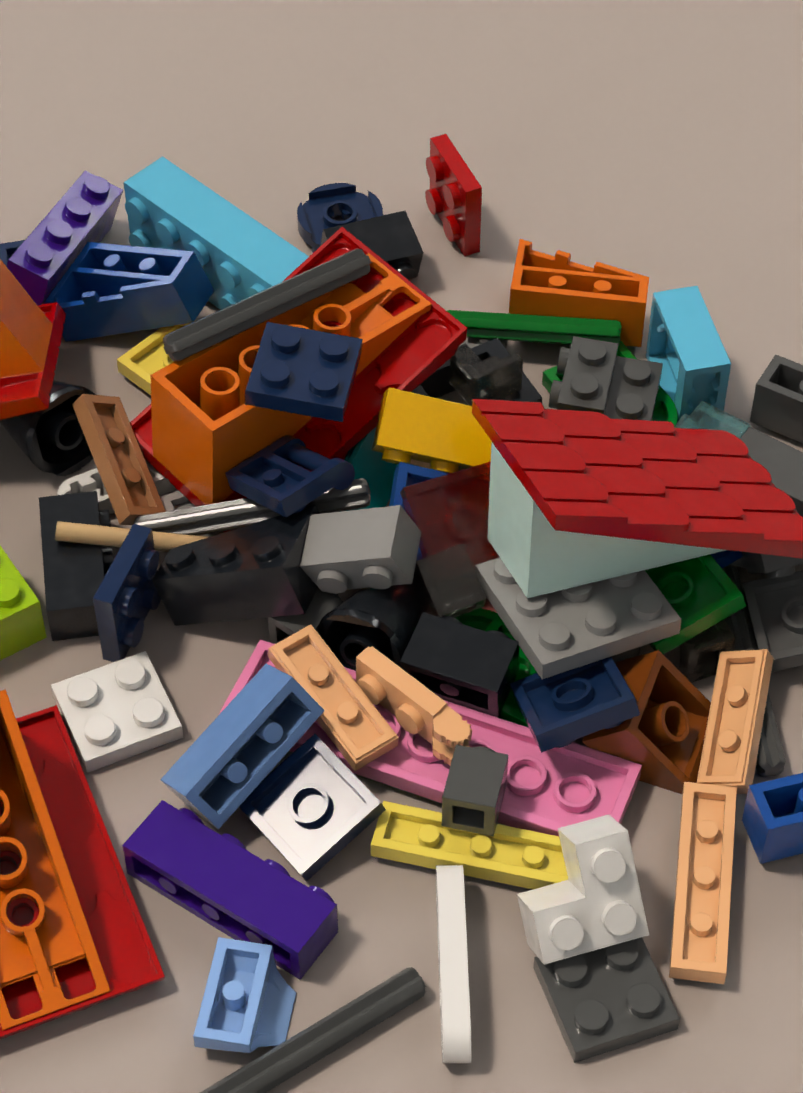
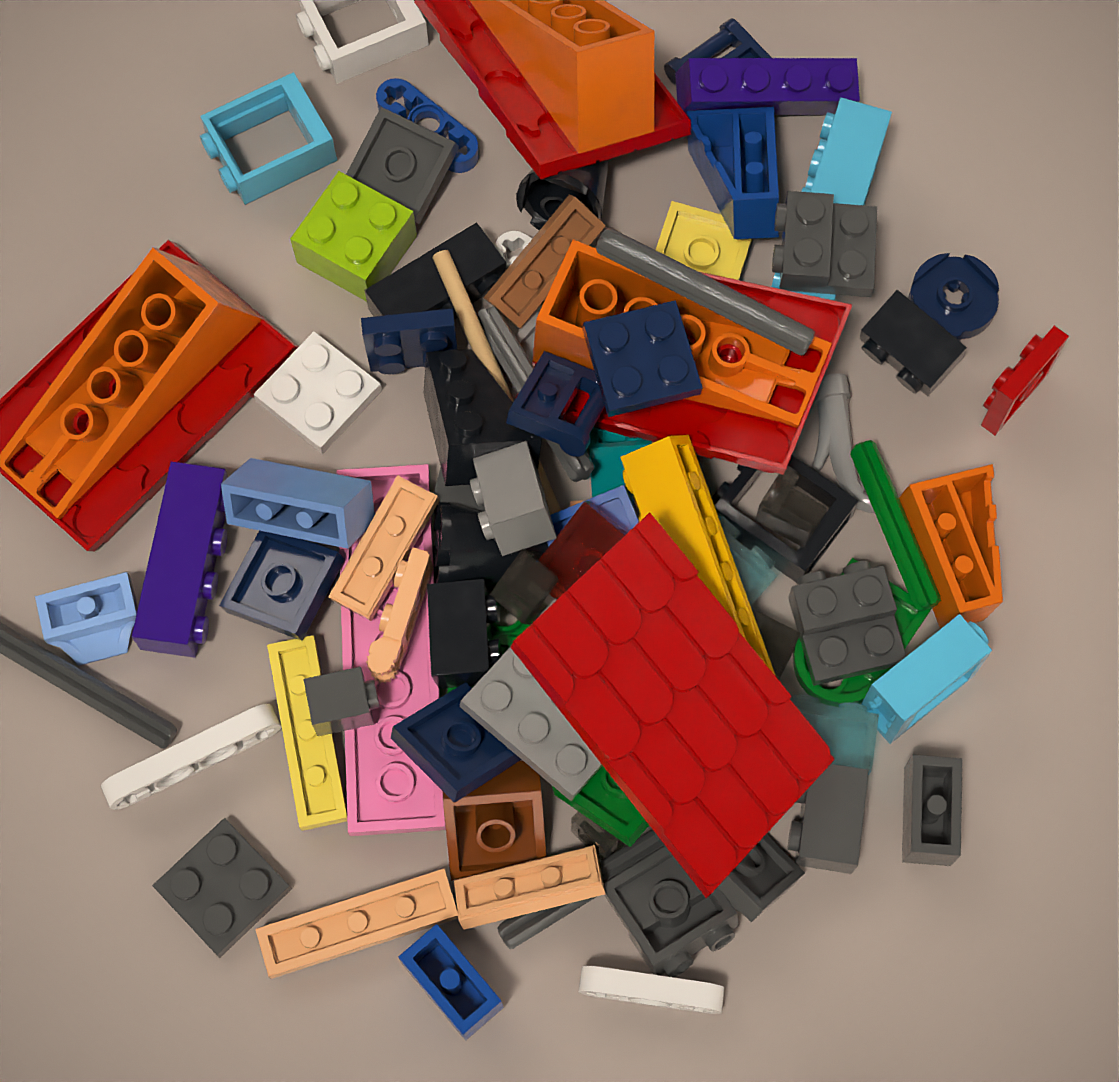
camera: 65 degrees right, 20 degrees up
(261, 238) = (825, 245): none -> dark grey plate
(598, 901) = (277, 837): white brick -> none

